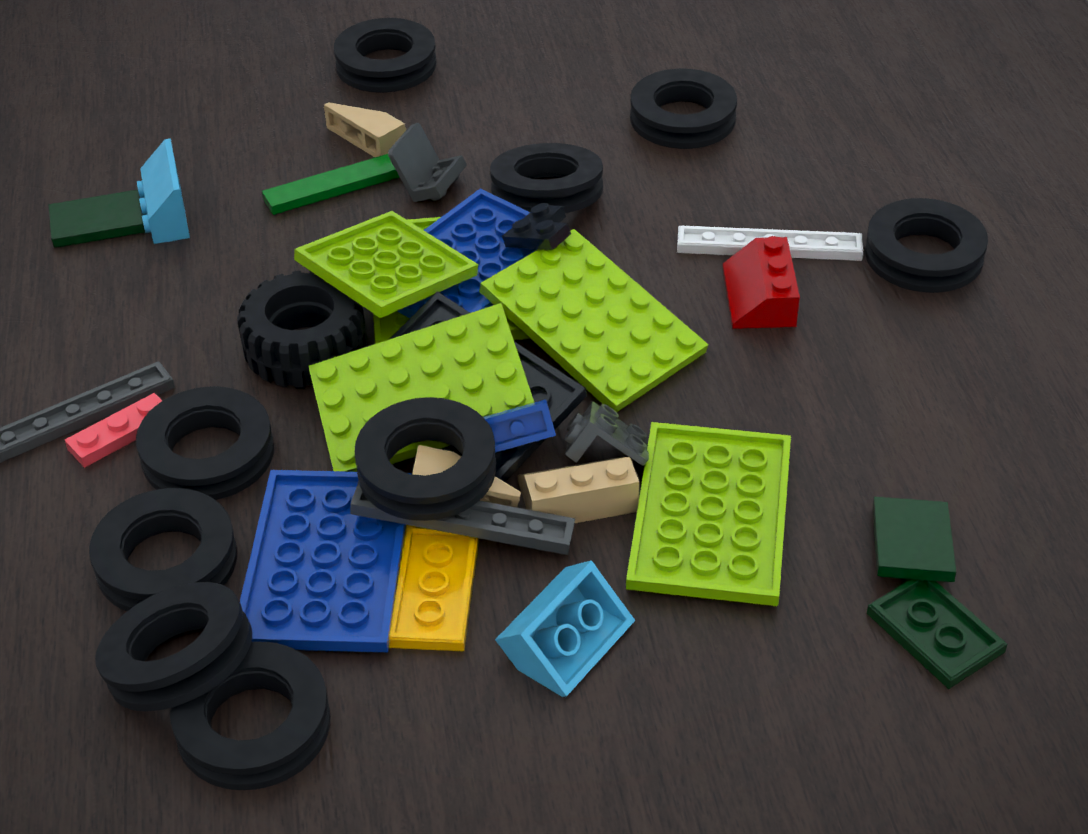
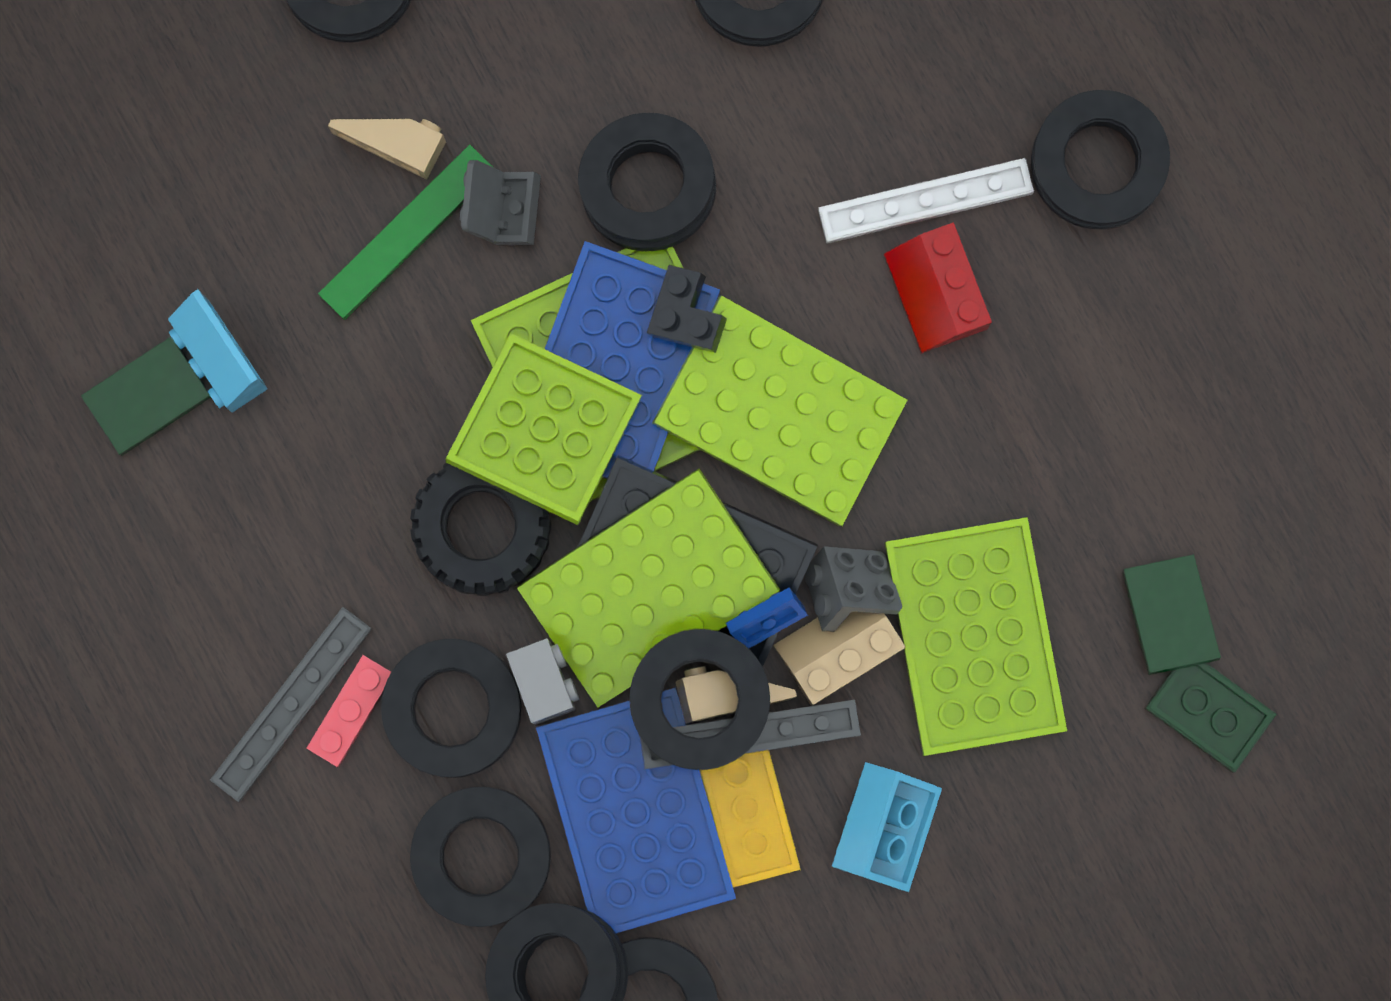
camera: 20 degrees left, 40 degrees up
(293, 427) = (542, 681): none -> light grey brick

